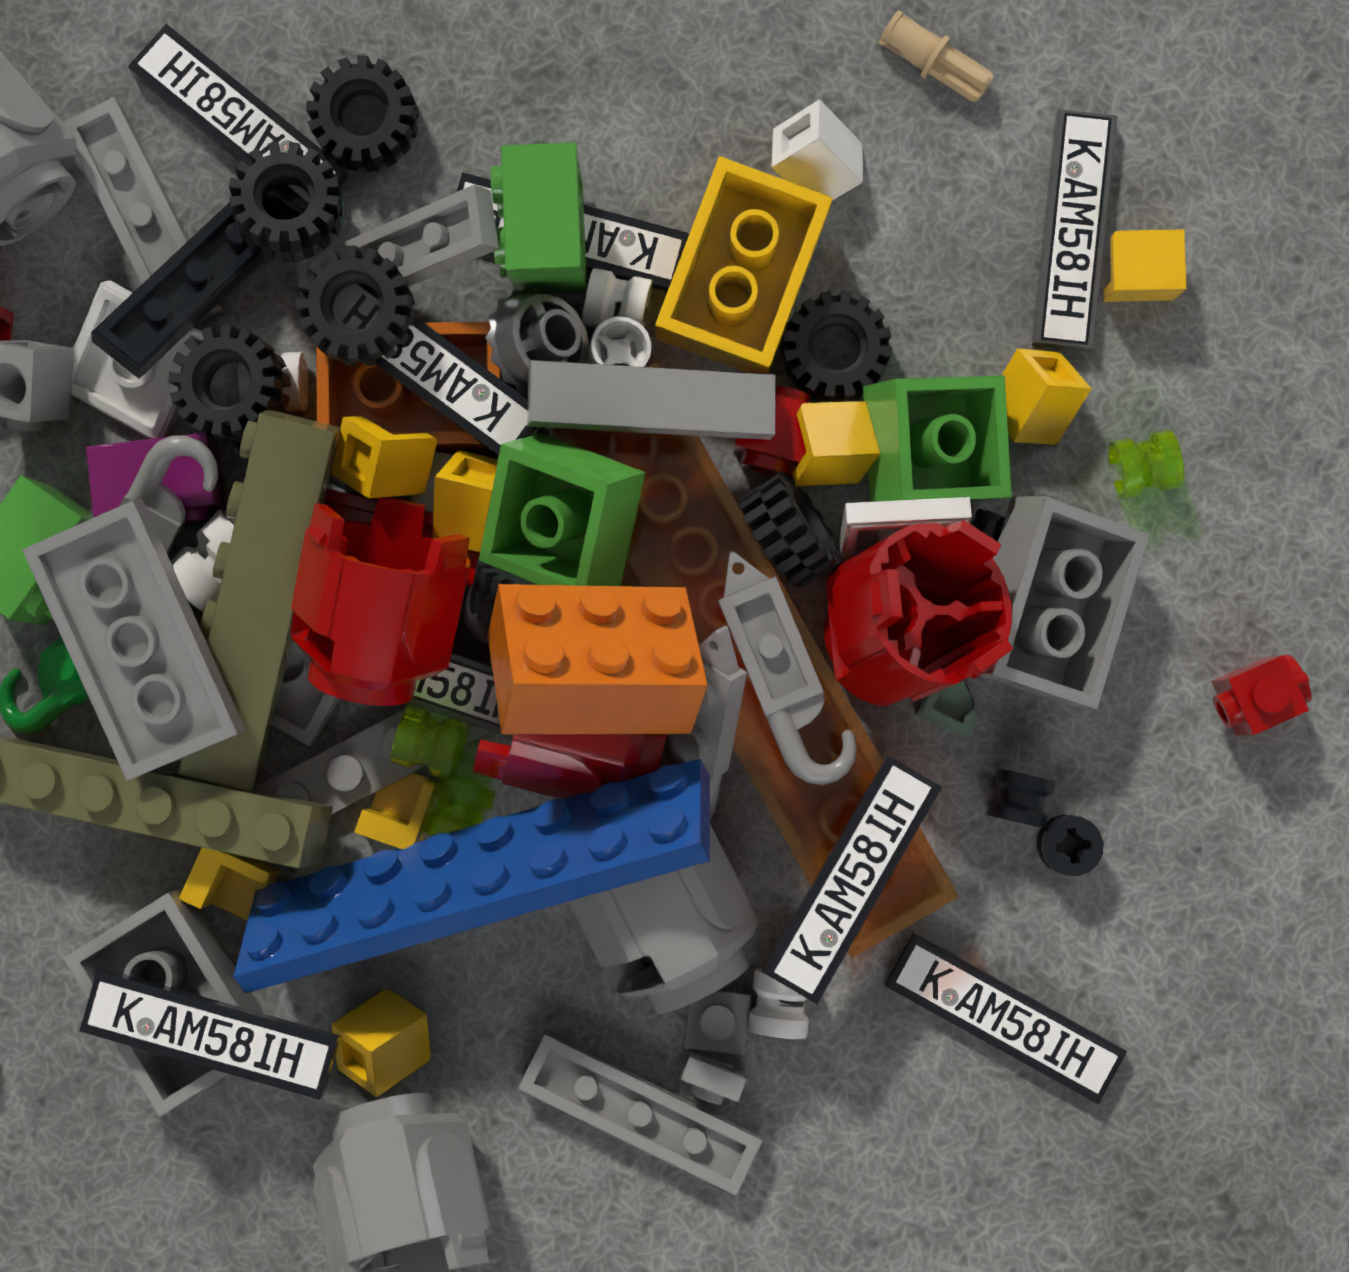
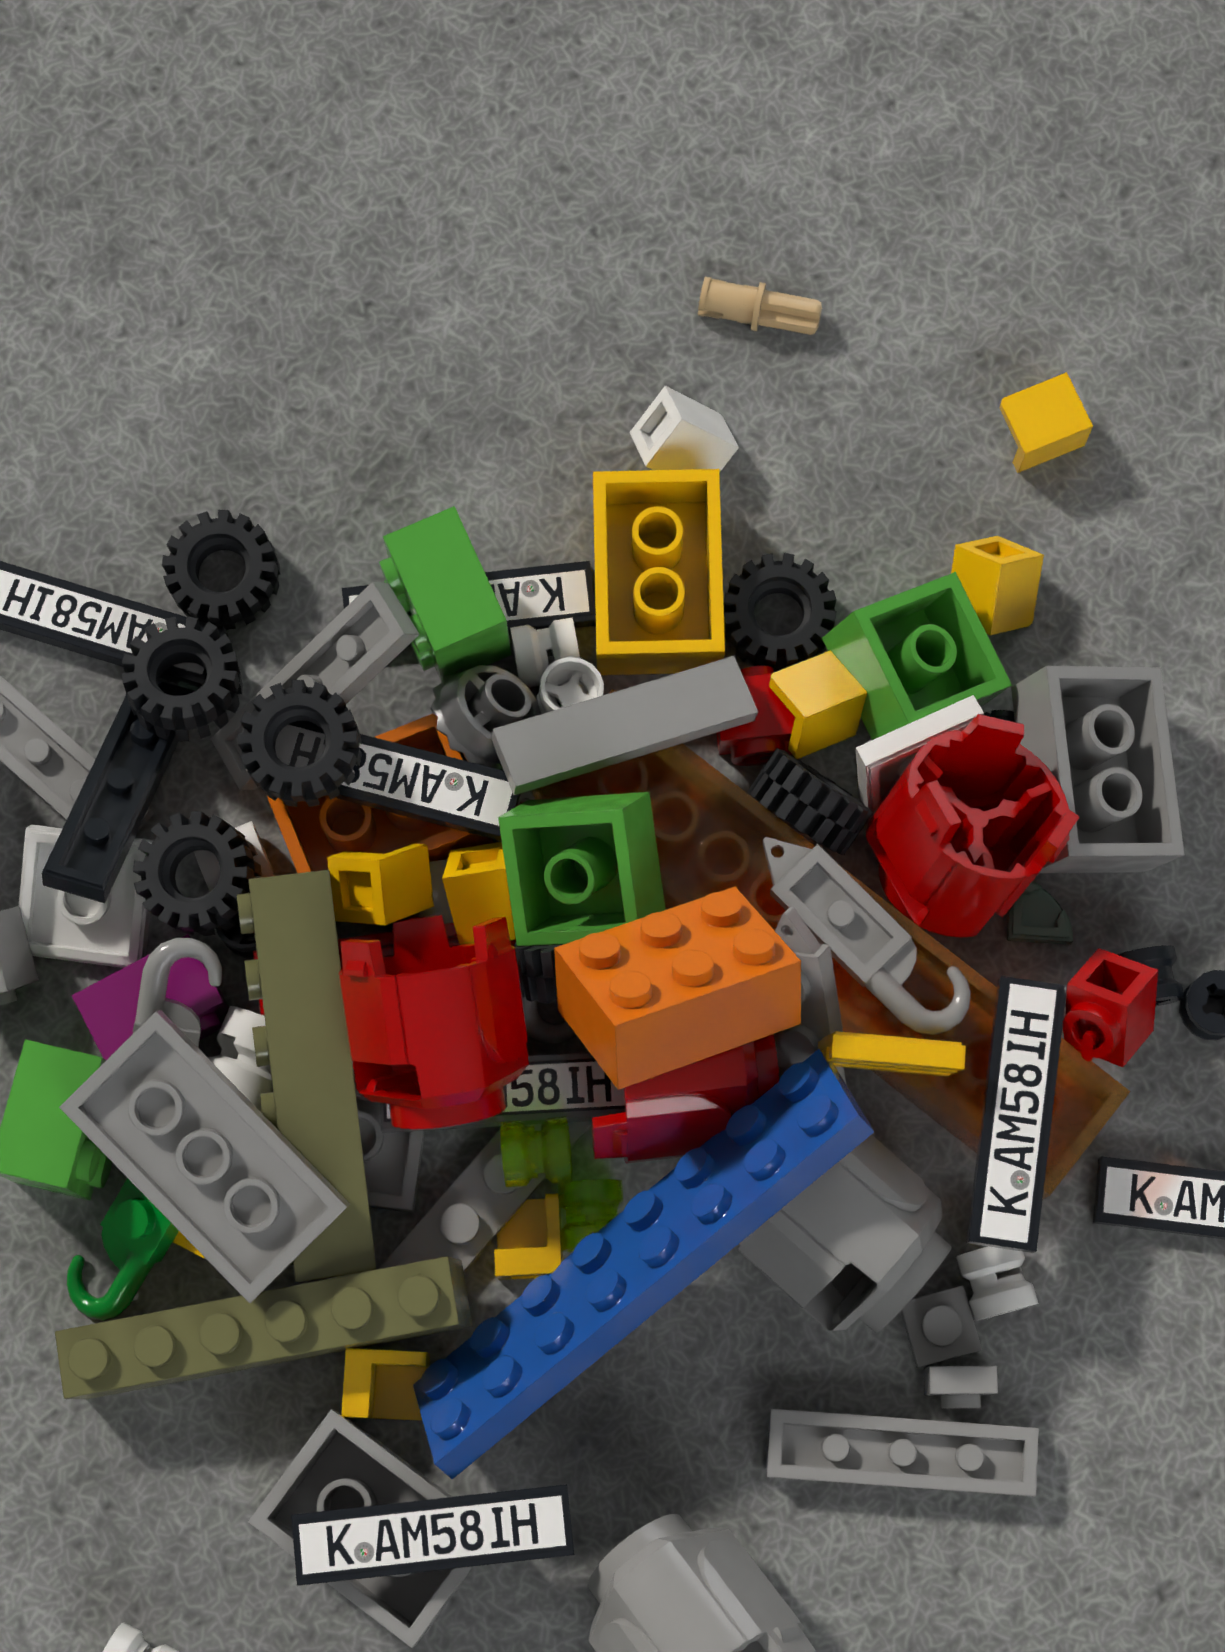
camera: 25 degrees left, 10 degrees down
(382, 1042) = (609, 1486): yellow panel -> none
(763, 787) = (893, 1053): none -> yellow tile
(972, 818) = (1110, 1007): none -> red brick
(1074, 230) = (961, 417): tile -> none
(1147, 463) = (1128, 606): clear neon green wheel -> none

